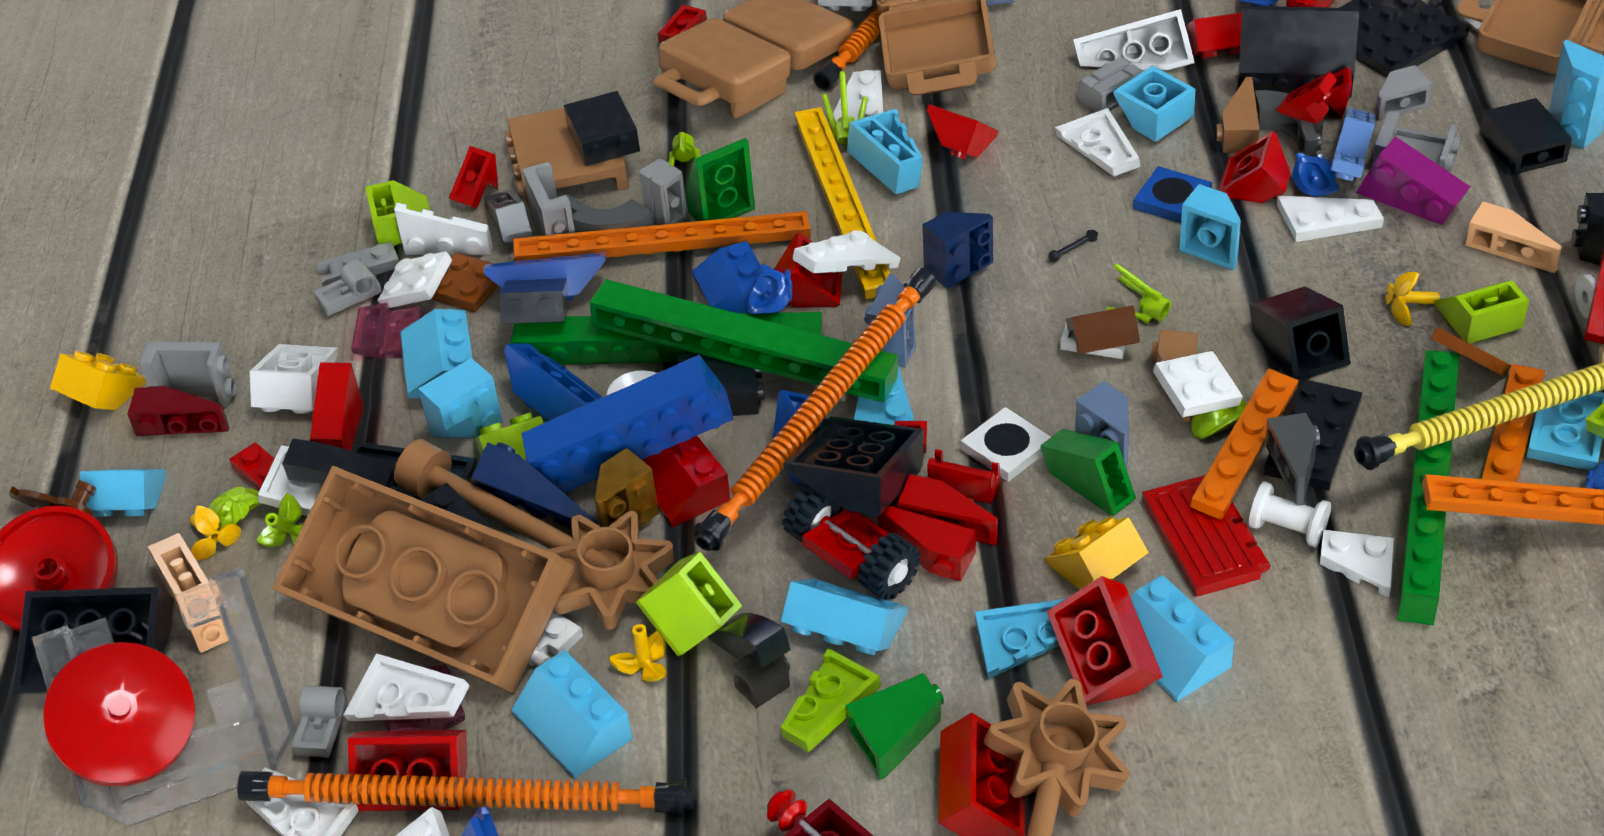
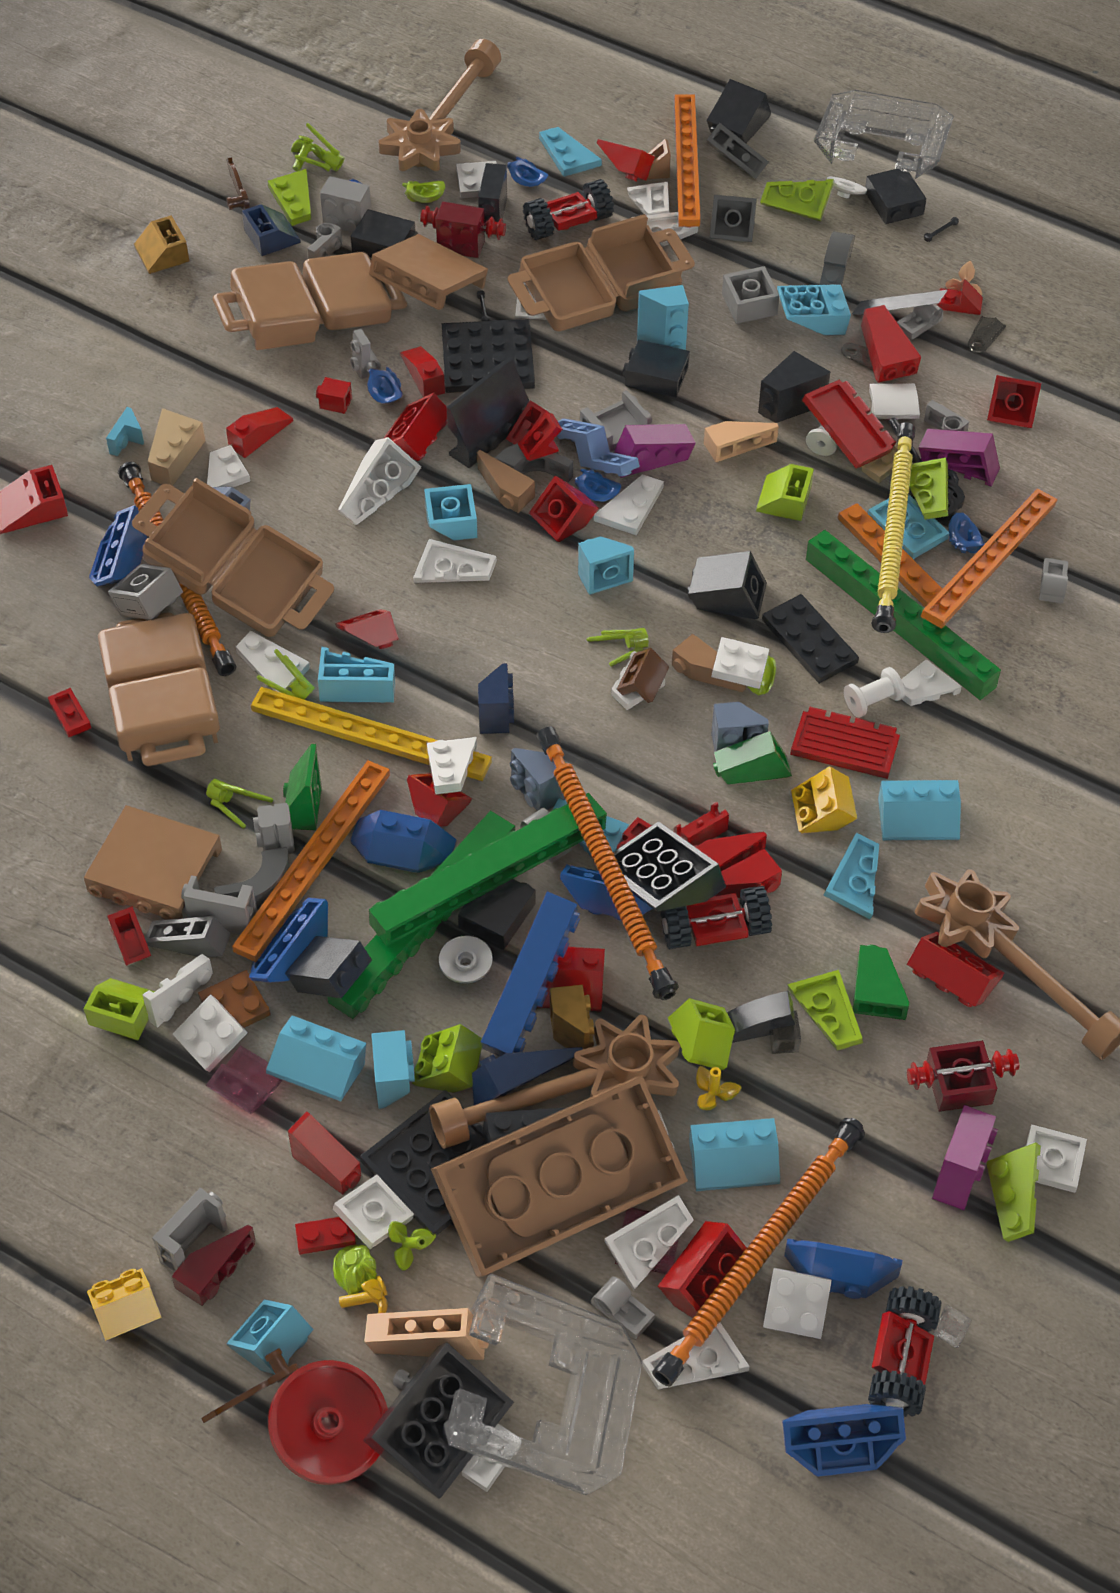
camera: 60 degrees left, 10 degrees up
(119, 714) = (544, 1425): red dish -> none
(288, 377) = (245, 1164): white slope -> none
(313, 460) = (394, 1179): black slope -> none
(355, 286) = (175, 1083): light grey plate -> none
(376, 258) = (145, 1061): light grey hinge -> none
(545, 383) = (420, 1006): blue wedge -> none
(601, 128) = (172, 824): black brick -> none
(770, 292) = (449, 828): blue hat -> none
(842, 615) = (768, 959): medium azure slope -> none
(1007, 441) = (686, 789): white tile -> none
(1091, 235) = (534, 628): black hinge -> none
(1098, 88) = (402, 523): light grey brick -> none
(1104, 641) = (903, 843): red slope -> none
(1166, 193) = (538, 563): blue tile -> none
(1243, 445) = (800, 674): orange plate -> none
(1293, 447) = (838, 655): dark grey slope -> none
(1402, 294) = (742, 513): yellow plant -> none
(1404, 92) = (559, 391): light grey slope -> none
(1471, 352) = (822, 523): dark orange tile -> none

